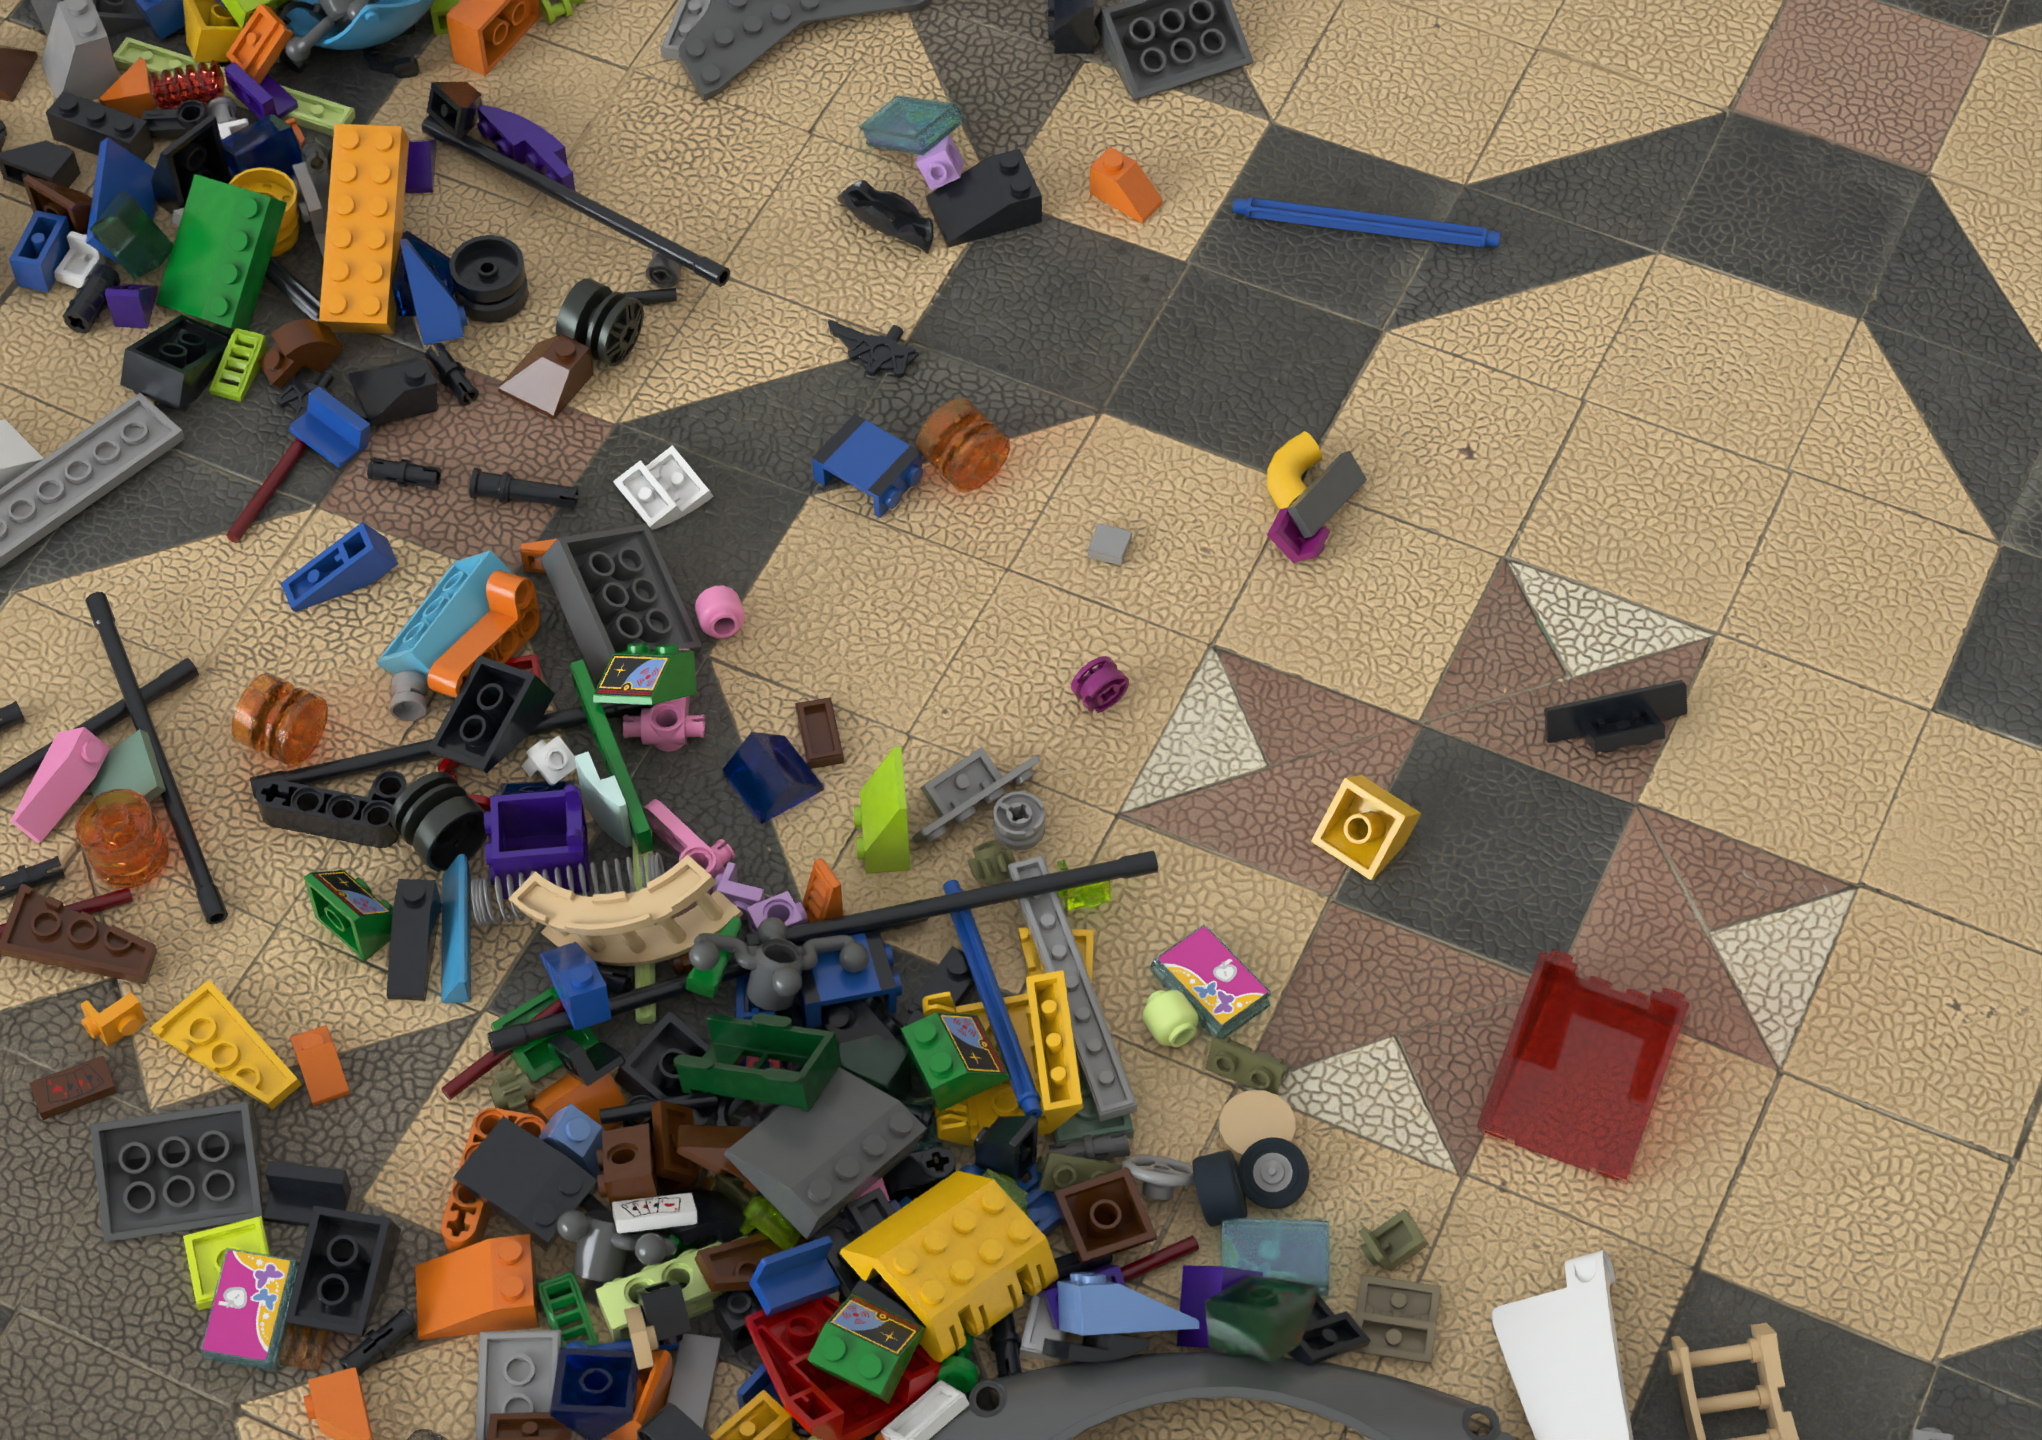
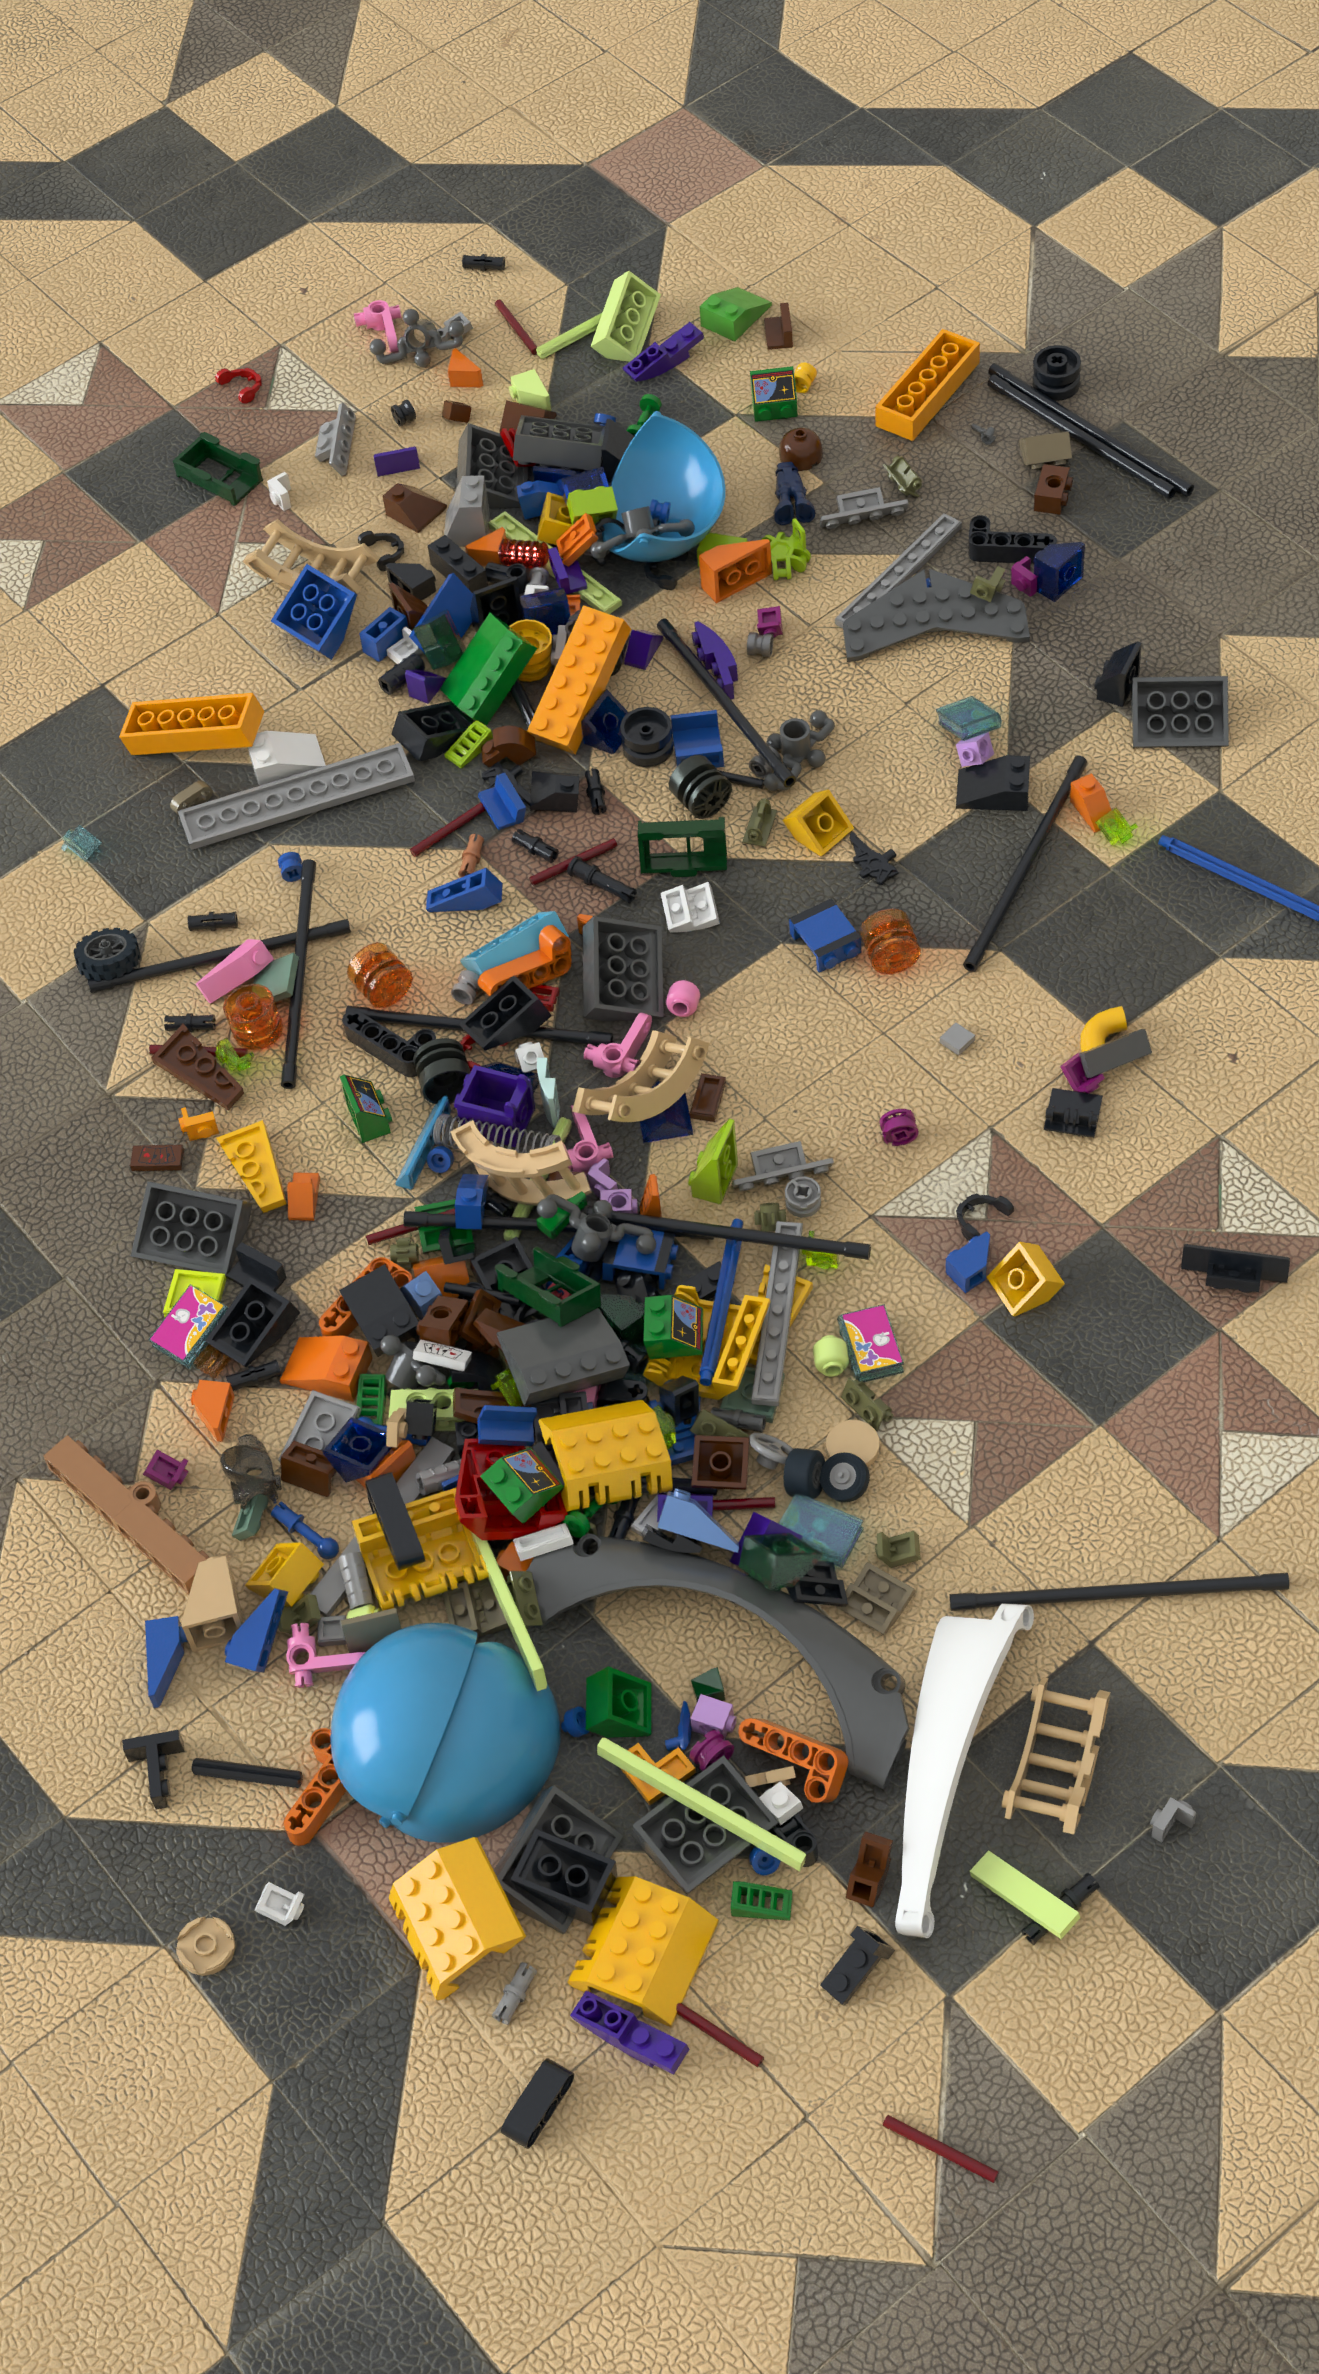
camera: 30 degrees right, 0 degrees up
(66, 612) = (290, 866): none -> blue wheel
(112, 906) = (227, 1055): none -> clear neon green bracket
(320, 516) = (471, 855): none -> nougat pin
(412, 938) = (395, 1137): black slope -> none
(434, 304) = (602, 741): blue slope -> none
(454, 106) = (681, 617): black slope -> none
(463, 481) = (563, 866): none -> dark red bar
(494, 944) = (440, 1159): none -> blue tile
(550, 375) = (657, 806): reddish brown slope -> none
(556, 262) = (697, 735): none -> blue panel
(576, 79) = (770, 621): none -> magenta bracket
(578, 111) = (760, 644): none -> flat silver wheel
(611, 755) = (566, 1067): green tile -> none
(624, 431) = (683, 863): none -> dark green piece
(647, 675) = (608, 1023): slope -> none
(699, 228) = (796, 744): none -> dark grey wheel
(700, 347) = (760, 824): none -> olive hinge
(721, 1387) = (431, 1479): none -> light grey axle
(759, 762) = (632, 1095): none -> tan fence
(780, 320) = (818, 822): none -> yellow slope
(877, 207) = (917, 762): black piece -> none
(1077, 423) = (978, 950): none -> black piece
(1171, 208) = (1115, 827): none -> clear neon green bracket
(1260, 790) = (1000, 1203): none -> black piece
(1285, 831) = (970, 1263): none -> blue slope
(1309, 589) = (1073, 1112): none -> black hinge
(1523, 1272) = (1264, 1582): none -> black piece
(1584, 1068) = (1081, 1485): clear red windscreen -> none

